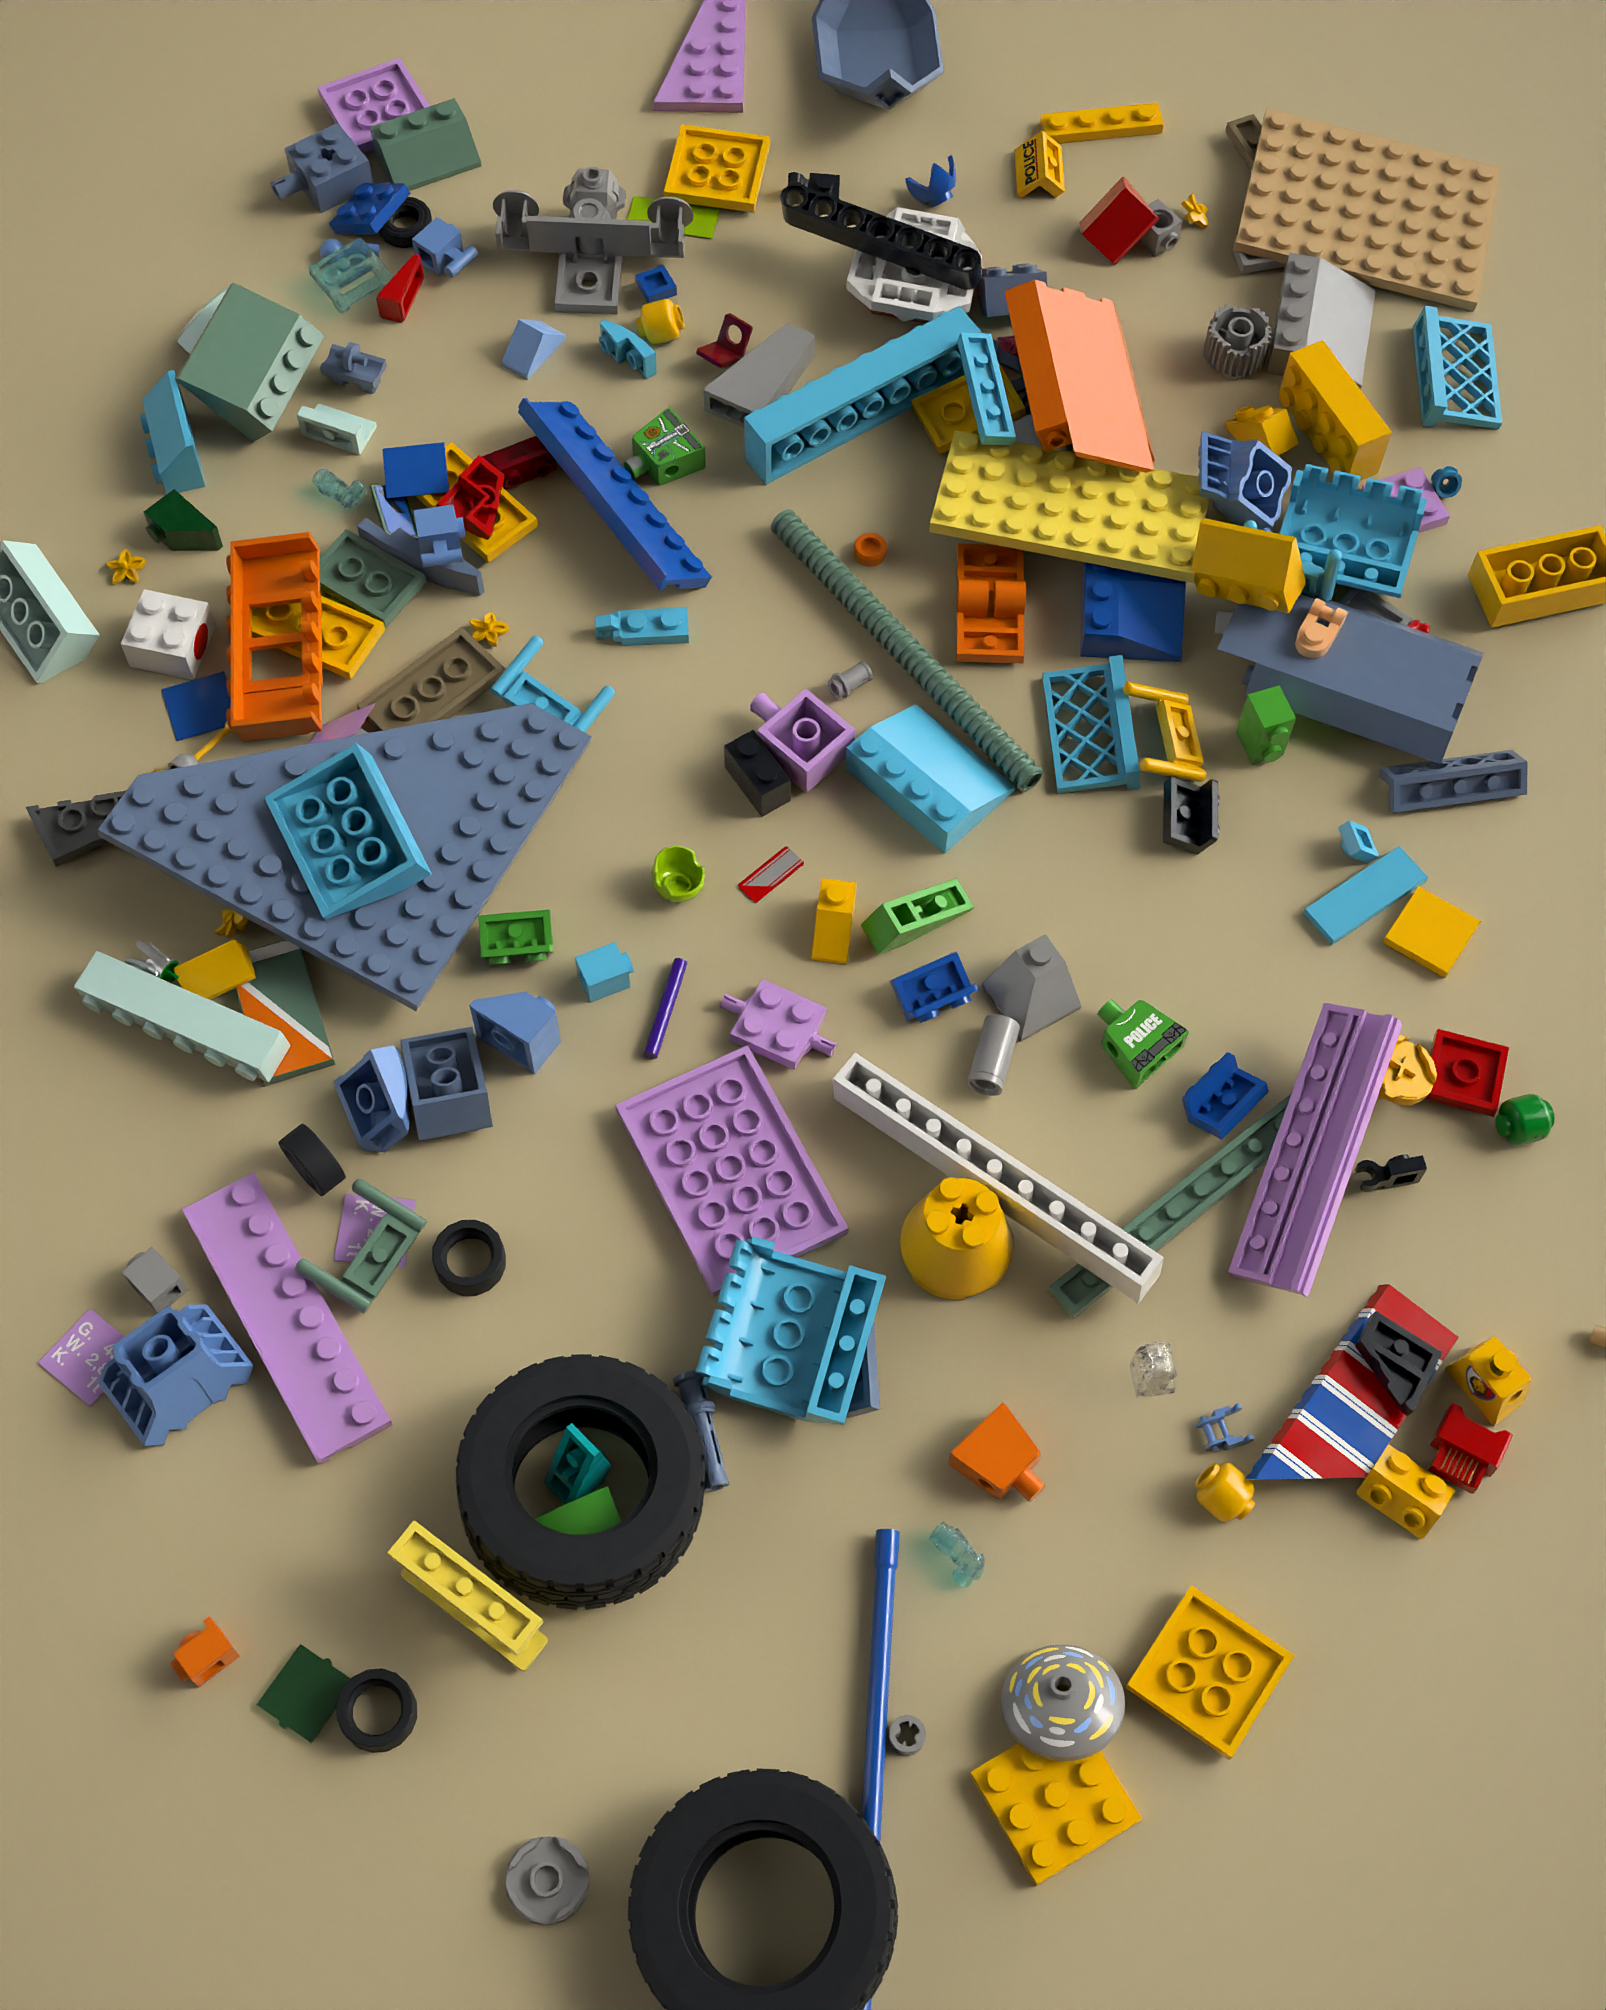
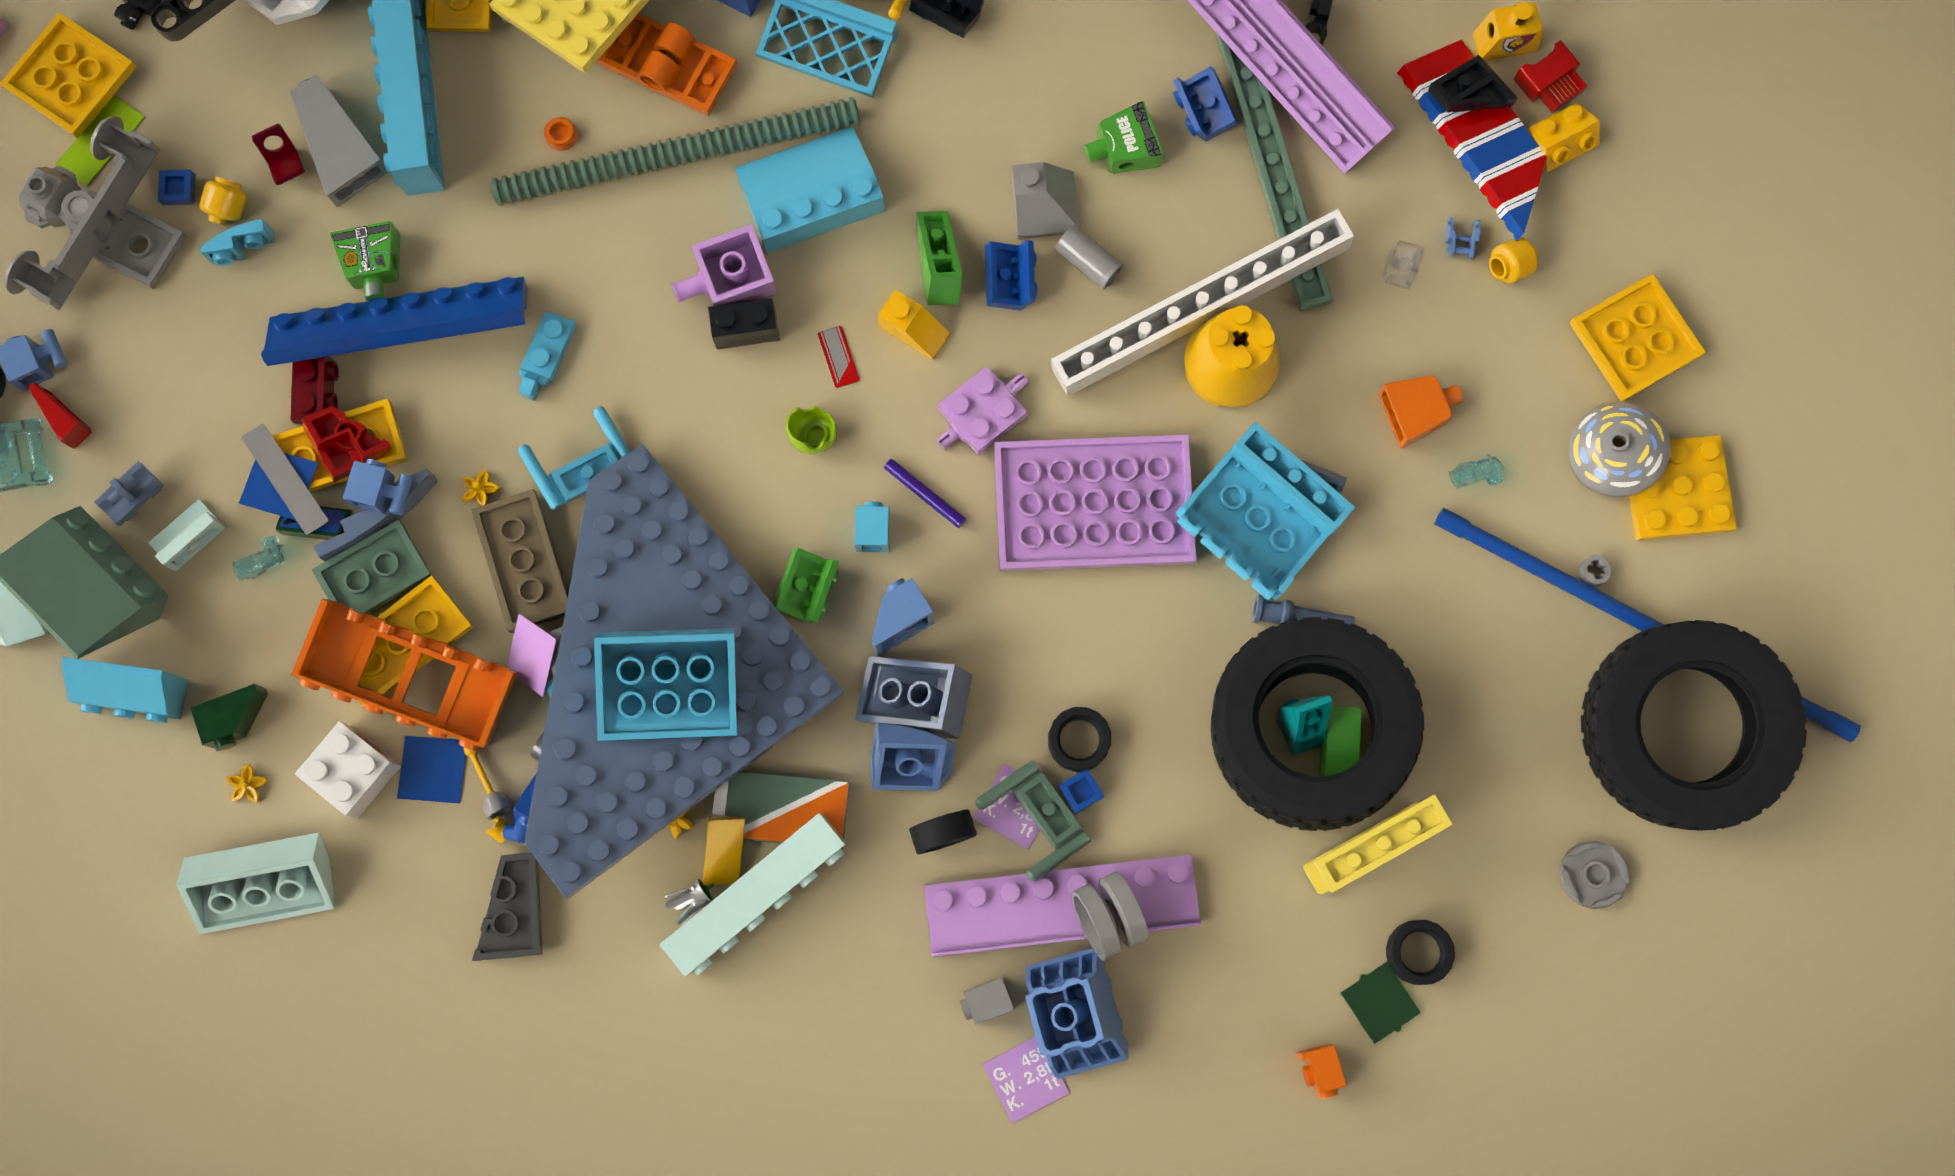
camera: 65 degrees left, 15 degrees up
(280, 1347) = (1110, 915): none -> light grey wheel
(413, 1282) = (1081, 791): none -> blue plate
(420, 472) = (285, 479): none -> light grey sticker
(531, 346) = (187, 326): light blue slope -> none
(844, 683) = (687, 217): light grey pin -> none

